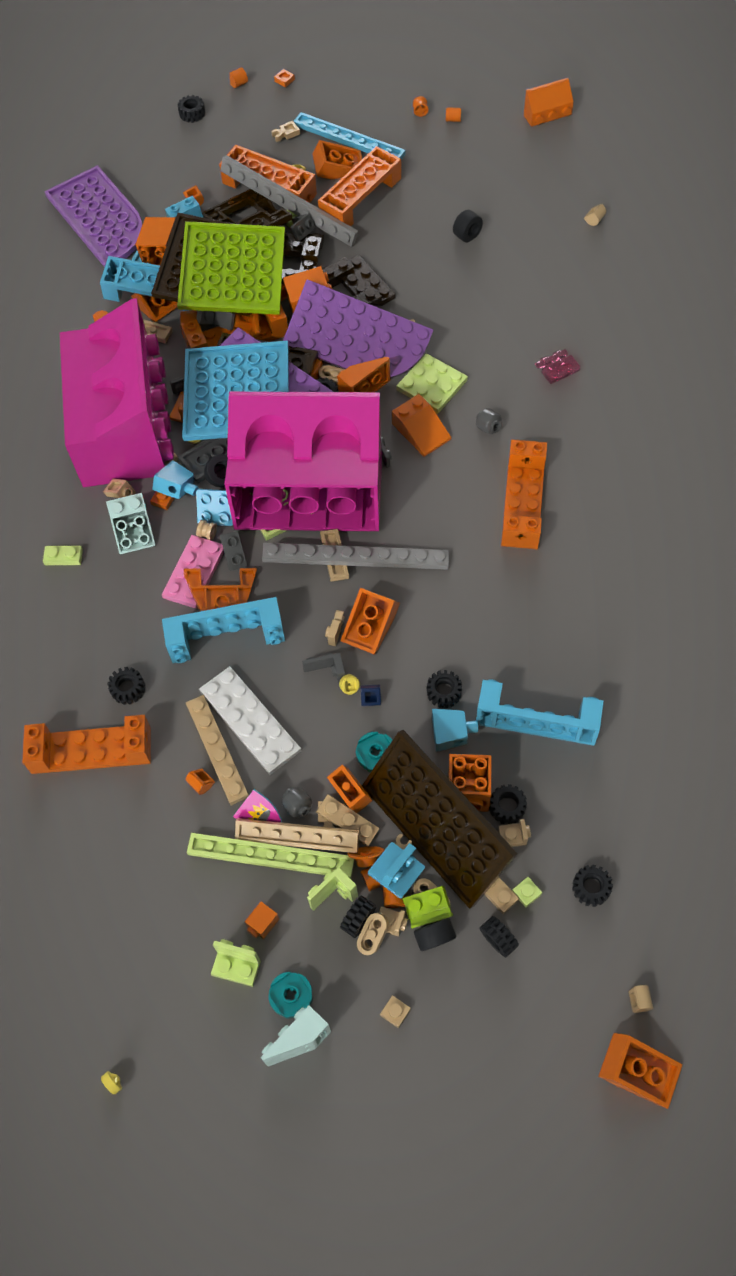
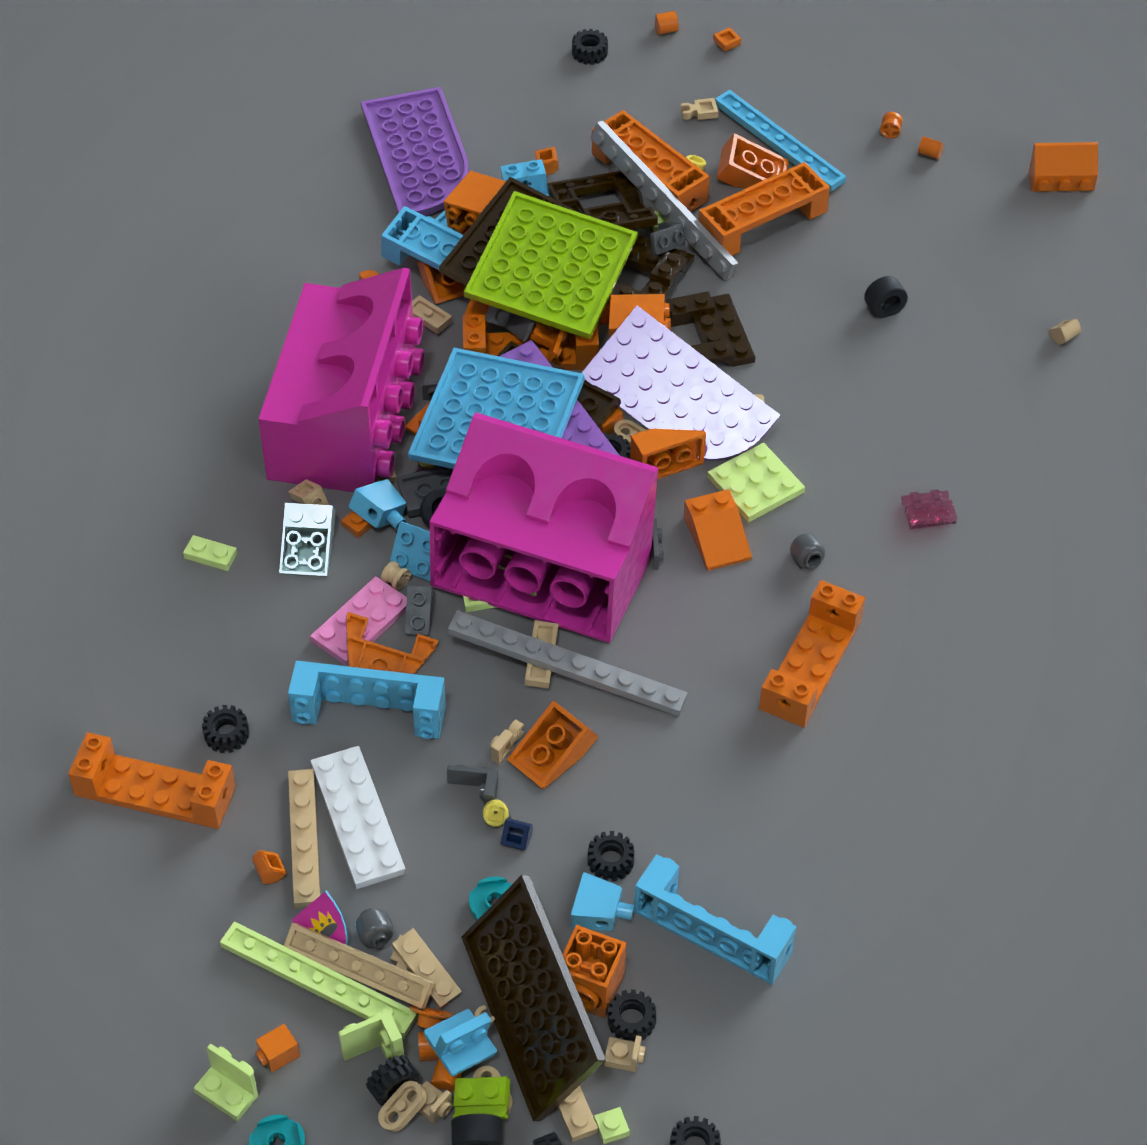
camera: 15 degrees right, 10 degrees down
(349, 788) = (443, 932): orange brick -> none

